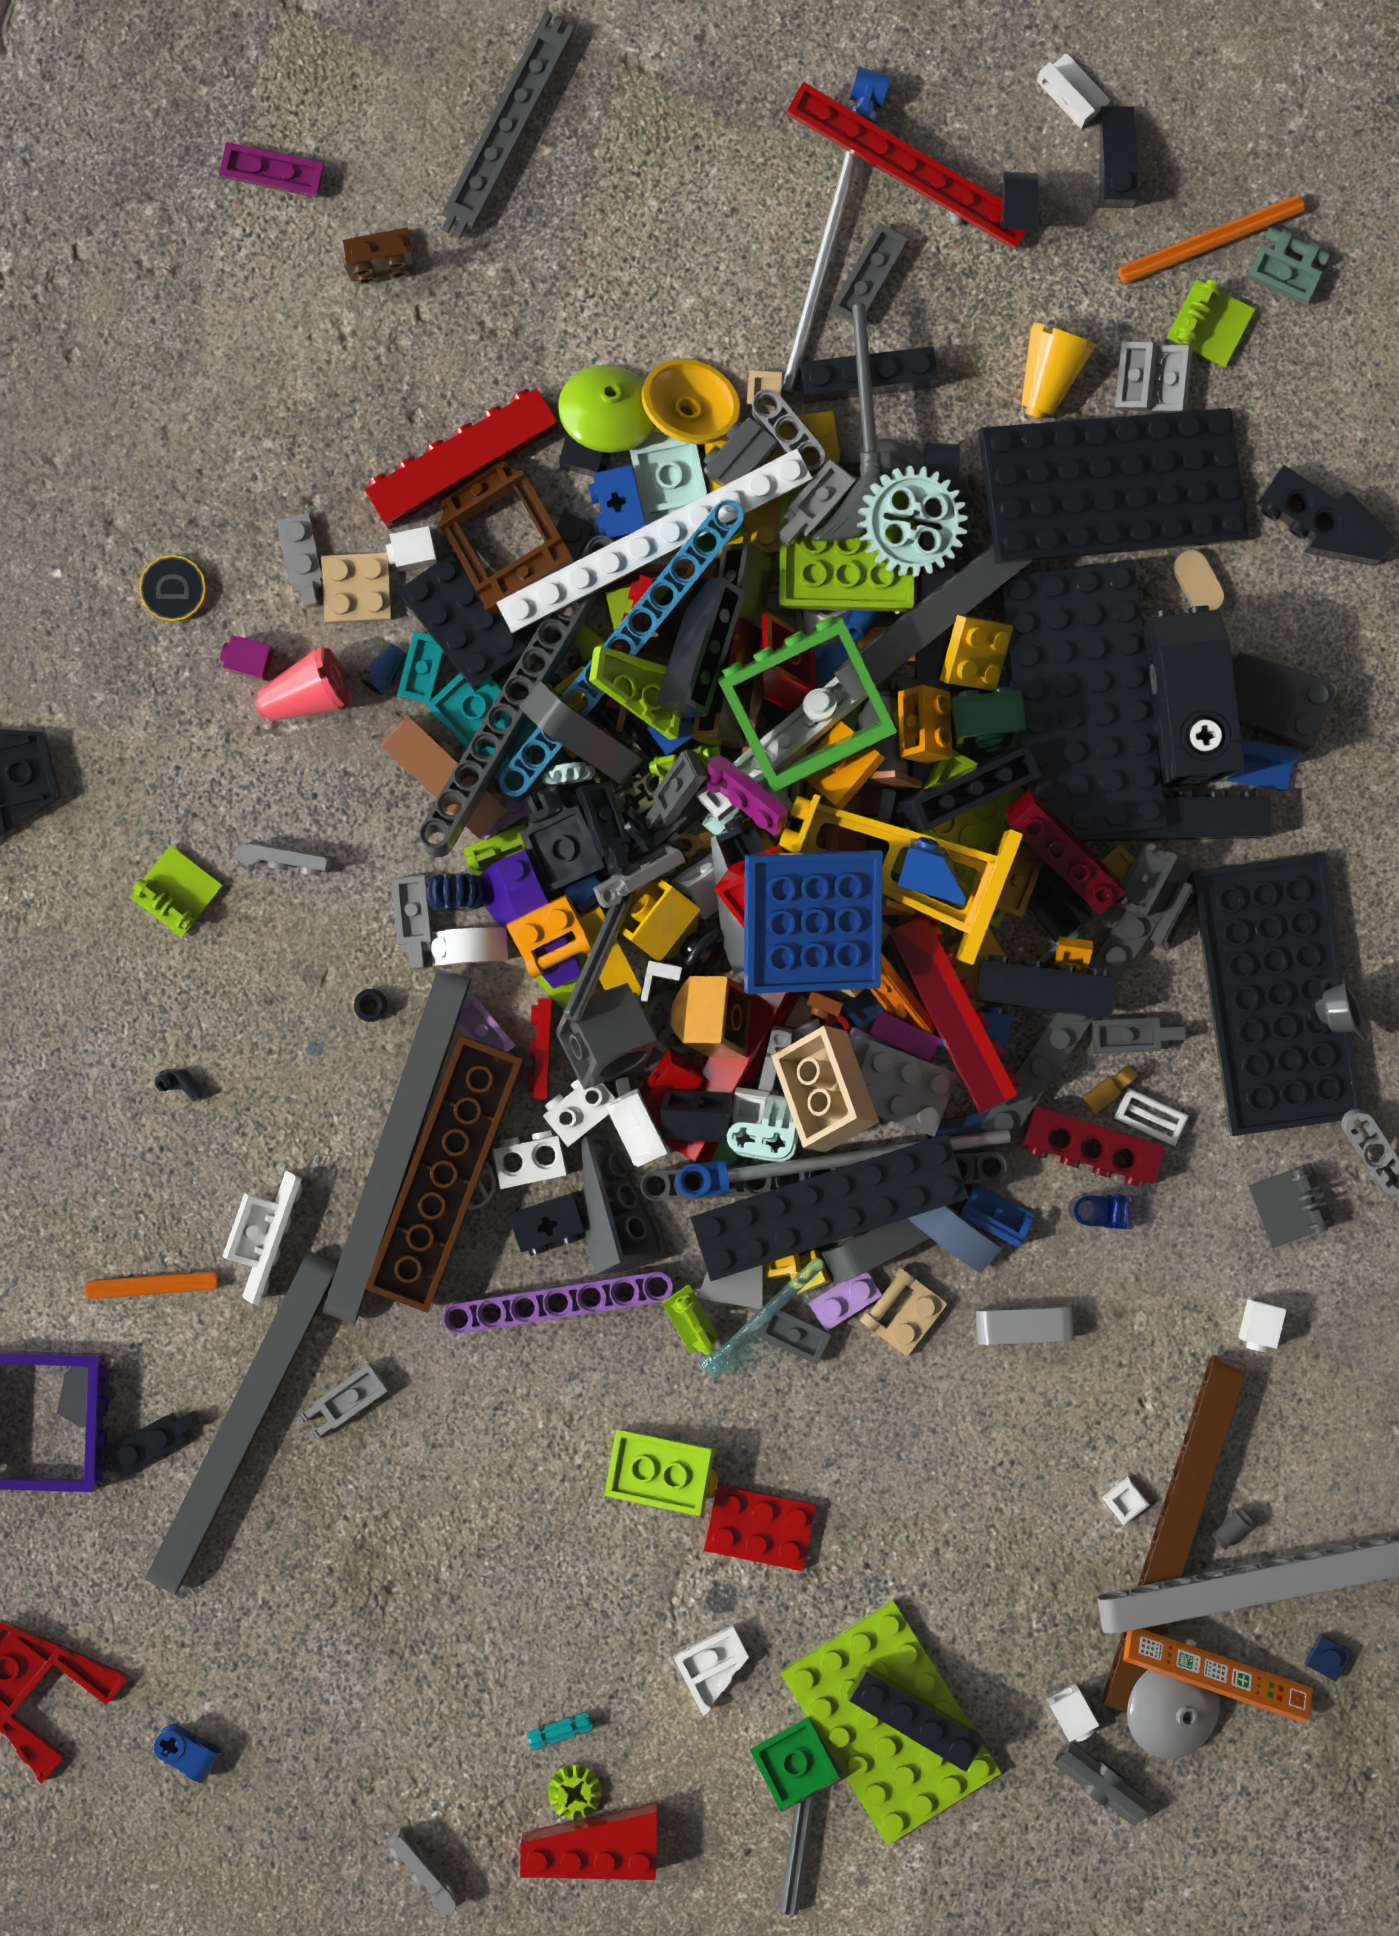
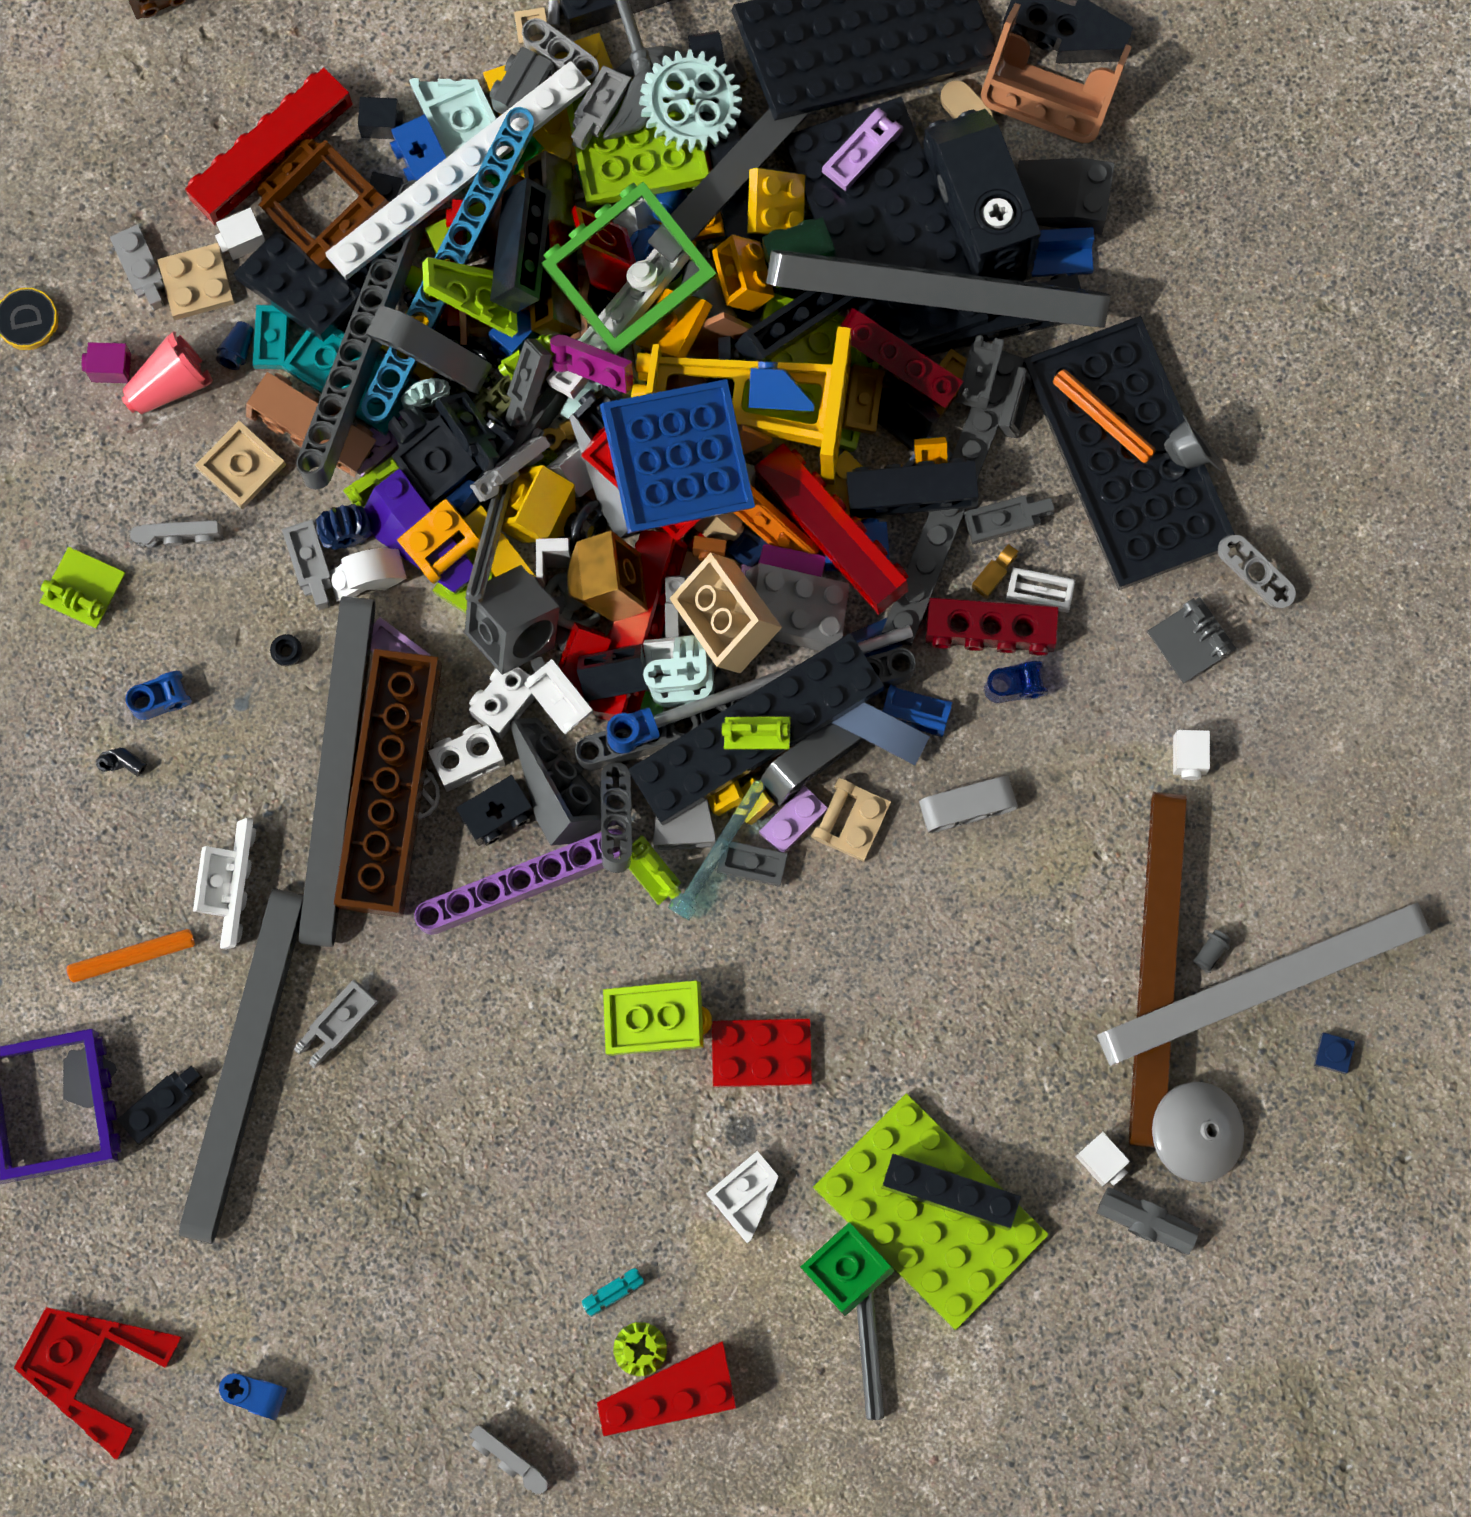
camera: 10 degrees left, 10 degrees down
(233, 1025) = (160, 696): none -> blue piece
(363, 798) = (240, 465): none -> tan plate
(540, 1048) = (454, 652): red plate -> none
(602, 420) = (393, 72): lime dish -> none
(670, 1262) = (618, 817): none -> dark grey beam
(690, 401) = (466, 49): yellow dish -> none
(828, 1217) = (756, 732): none -> lime hinge
(1078, 615) = (861, 149): none -> lavender plate
(1122, 791) = (937, 288): none -> dark grey beam
(1125, 1500) = (1104, 949): white tile -> none
(1218, 1674) = (1231, 1086): orange tile -> none
(1260, 954) = (1104, 416): none -> orange axle
(1287, 591) = (1043, 96): none -> nougat windscreen

